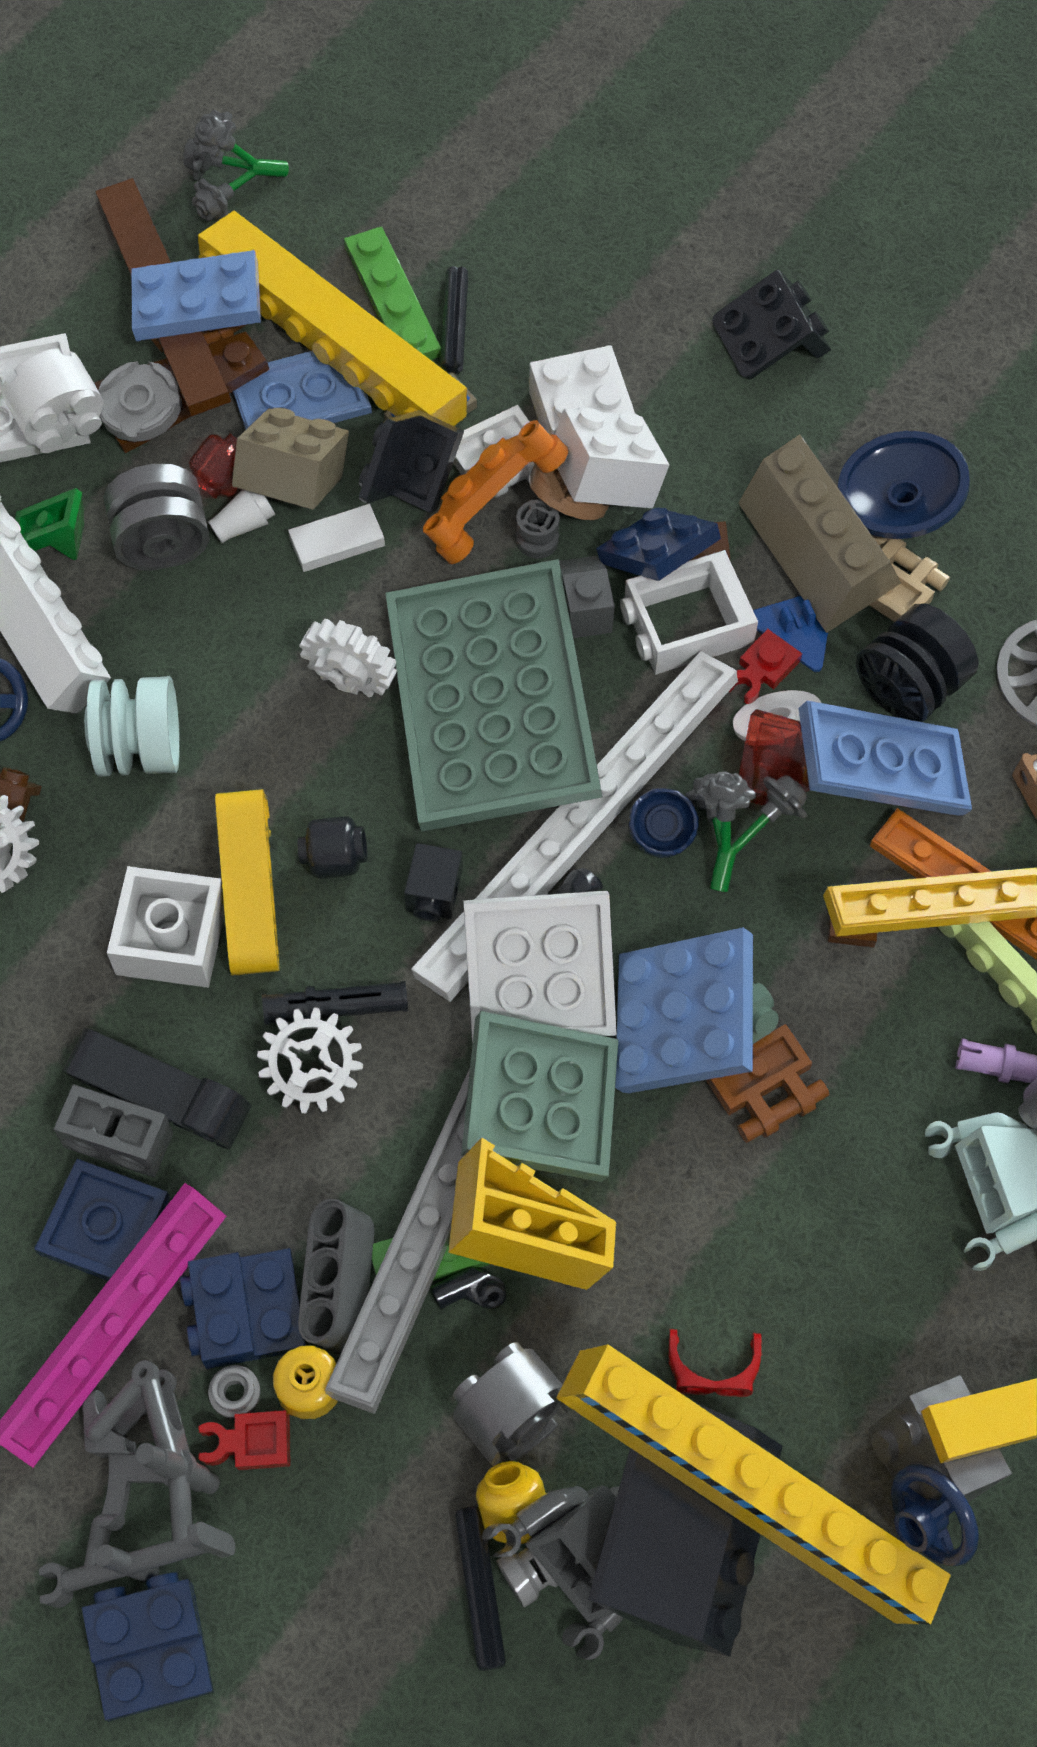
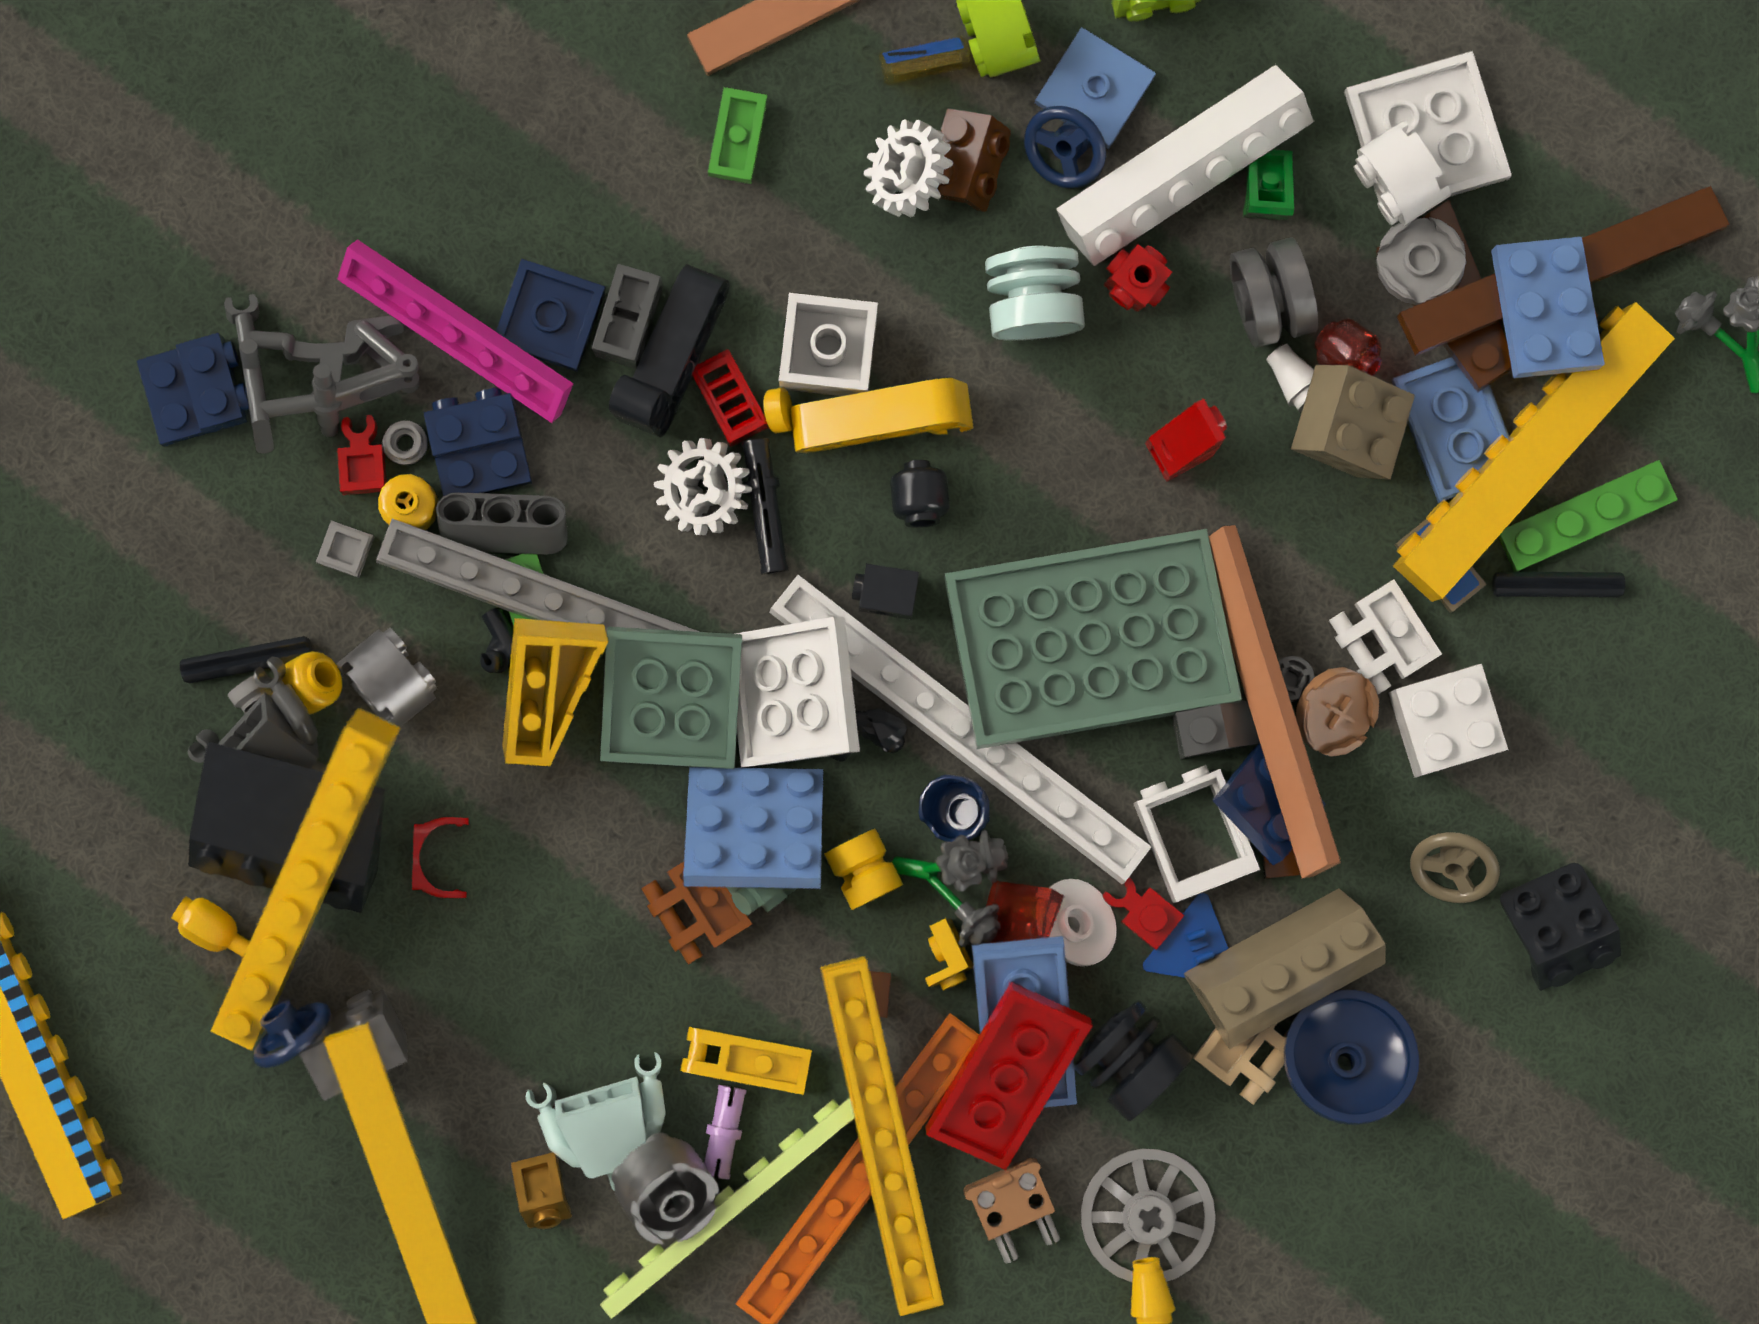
camera: 85 degrees right, 20 degrees up
(128, 640) = (1126, 289): none -> red brick
(232, 983) = (777, 410): none -> yellow tile
(237, 1044) = (746, 428): none -> red slope
(294, 583) = (1187, 439): none -> red slope
(336, 537) = (1277, 476): white tile -> none
(348, 658) = (1117, 495): white gear -> none
(354, 1466) = (345, 549): none -> light grey tile
(411, 460) = (1356, 549): black bracket -> none
(484, 480) = (1331, 621): orange plate -> none
(571, 528) = (1272, 708): none -> nougat tile
(610, 458) = (1363, 748): white brick -> none
(710, 401) = (1454, 862): none -> dark tan piece
(733, 906) = (863, 869): none -> yellow wheel
(800, 1636) = (209, 926): none -> yellow plant
(805, 836) = (946, 947): none -> yellow bracket
(930, 1036) = (748, 1061): none -> yellow plate
(939, 772) = (1008, 1076): none -> red plate

